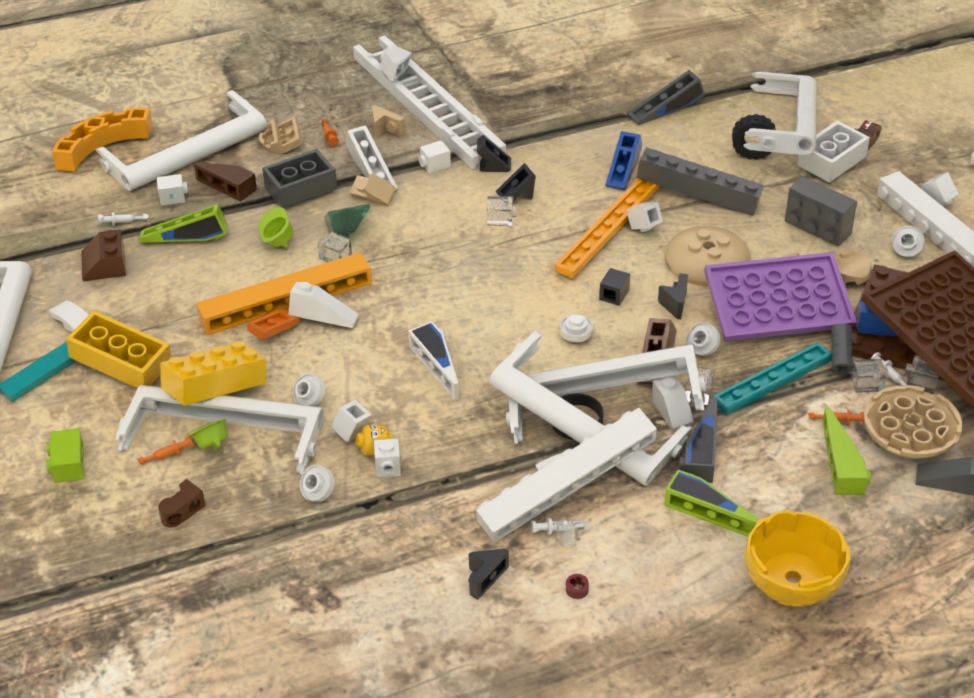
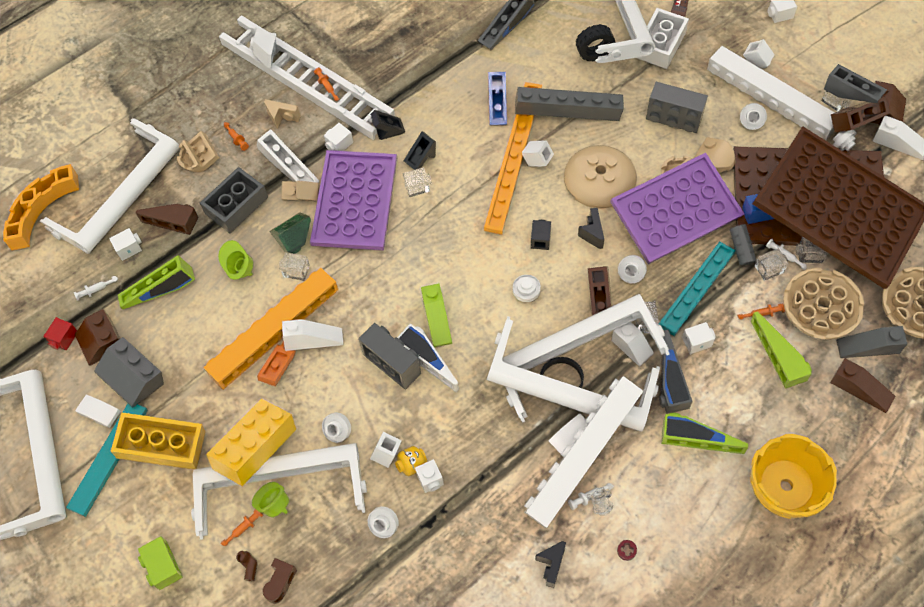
camera: 15 degrees left, 20 degrees up
(67, 244) = (60, 334): none -> red brick
(119, 290) = (128, 372): none -> dark grey slope
(158, 484) = (249, 563): none -> reddish brown arm
(396, 342) = (390, 355): none -> dark grey brick
(426, 211) = (354, 200): none -> medium lavender plate
(443, 104) = (323, 79): none -> orange piece
(465, 325) = (436, 315): none -> lime slope
(751, 418) = (698, 338): none -> white brick
(926, 508) = (862, 385): none -> reddish brown slope

